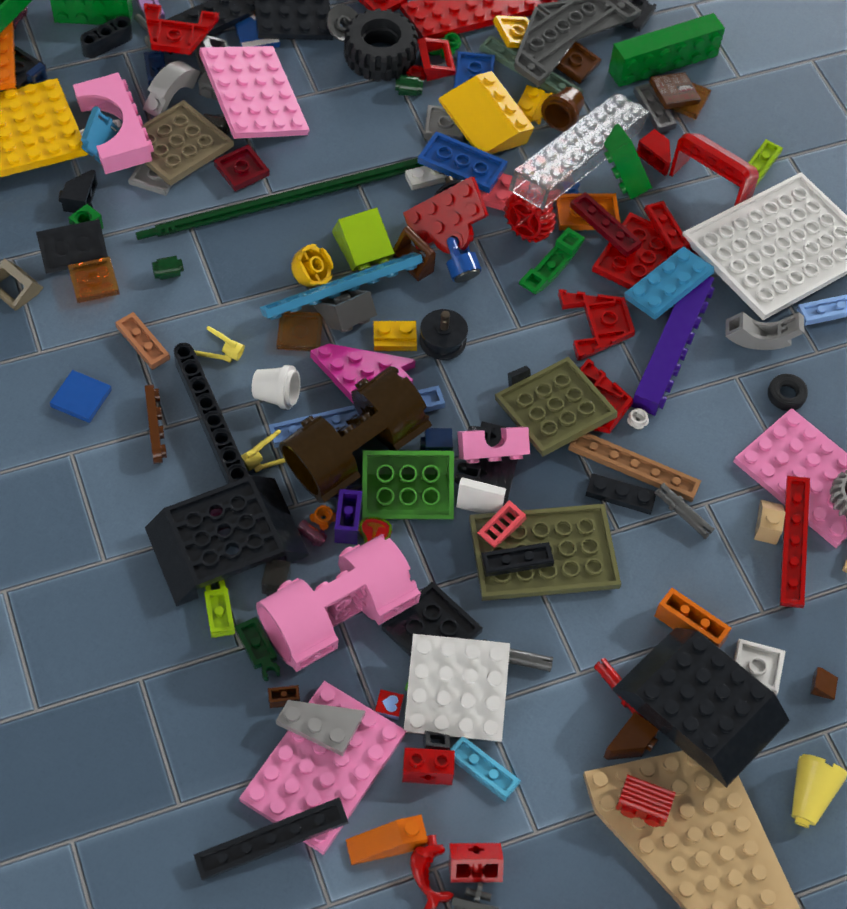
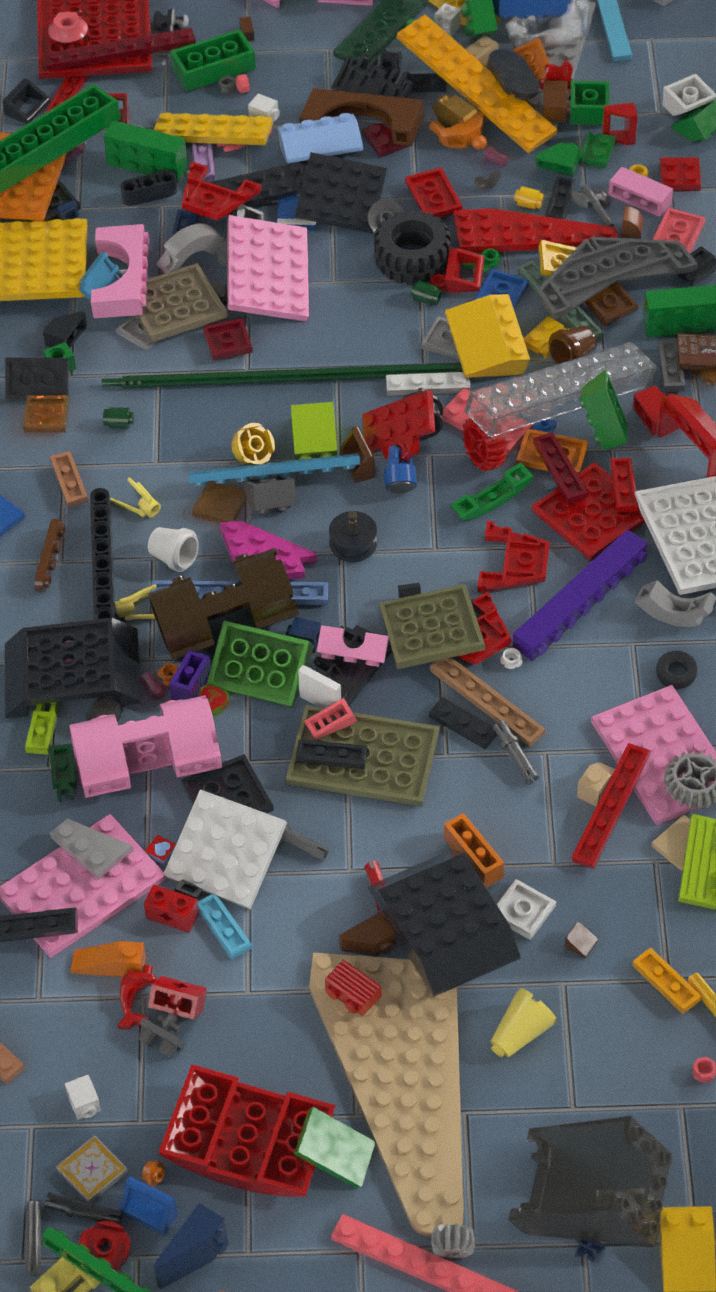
camera: 25 degrees right, 5 degrees down
(279, 695) = (63, 813): reddish brown piece -> none
(395, 335) = (308, 528): yellow plate -> none
(462, 161) = (441, 375): blue plate -> none
(669, 282) = (598, 537): dark azure plate -> none

